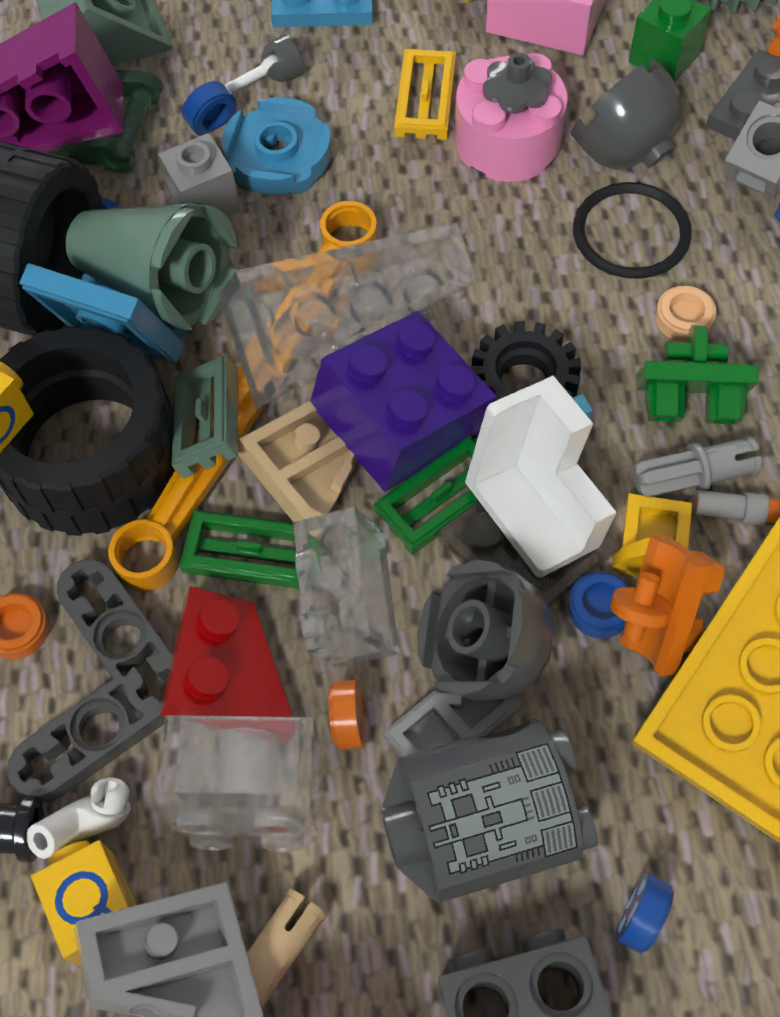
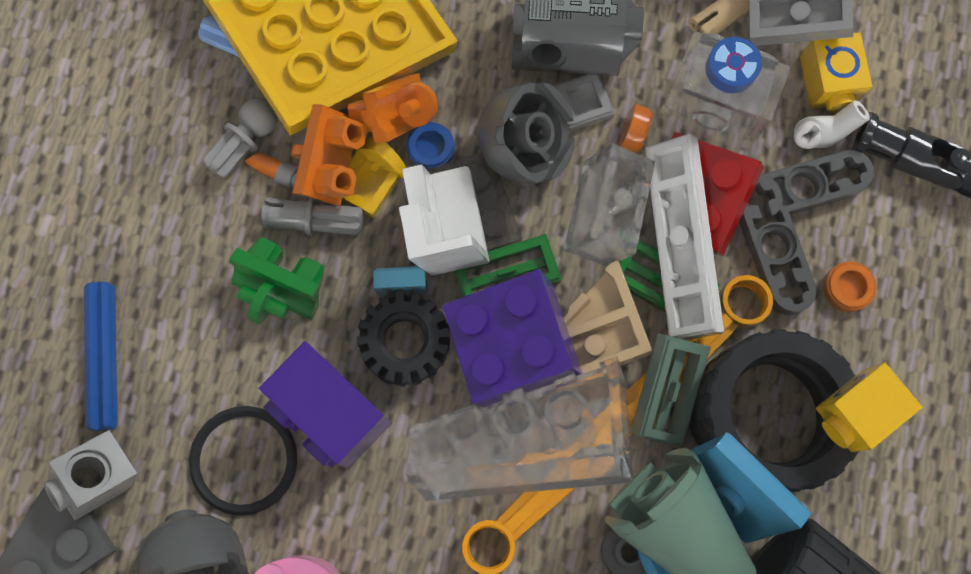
camera: 165 degrees left, 15 degrees up
(238, 762) = (733, 64): none -> blue tile
(242, 587) = (684, 239): none -> white plate
(569, 265) = (325, 406): none -> dark purple brick
(681, 309) = (245, 356): light nougat tile -> none
(715, 509) = (327, 155): none -> orange hips

